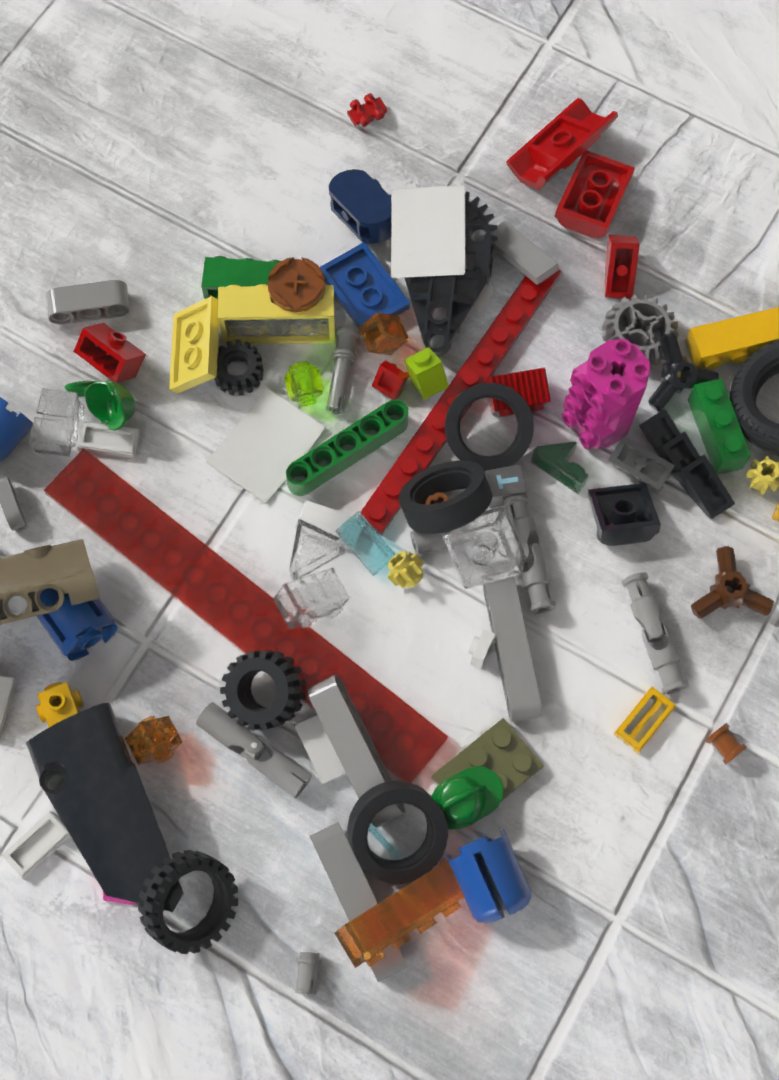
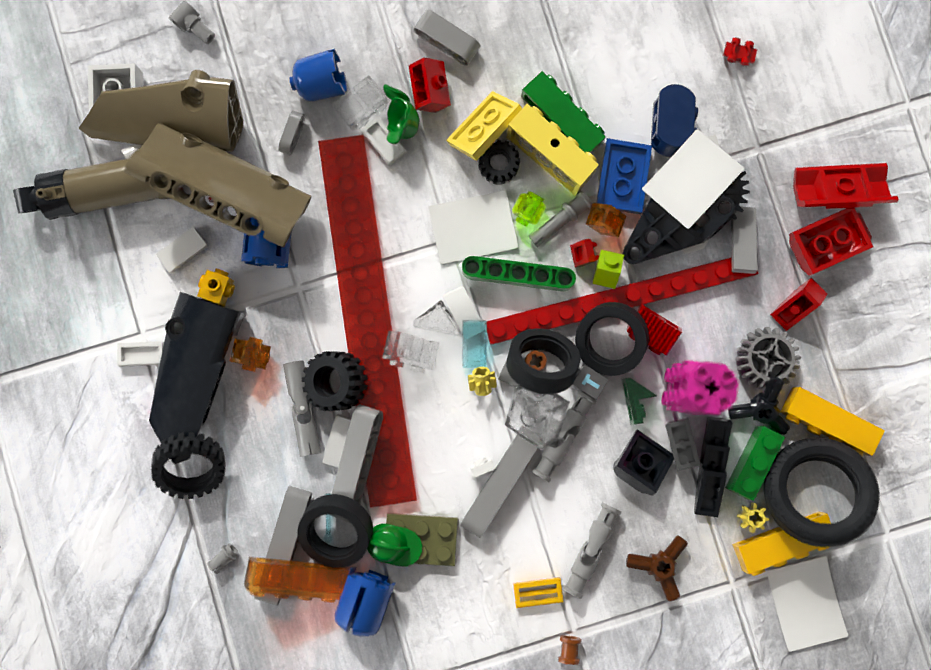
camera: 40 degrees right, 15 degrees up
(296, 284) = (575, 144): dark orange tile -> none

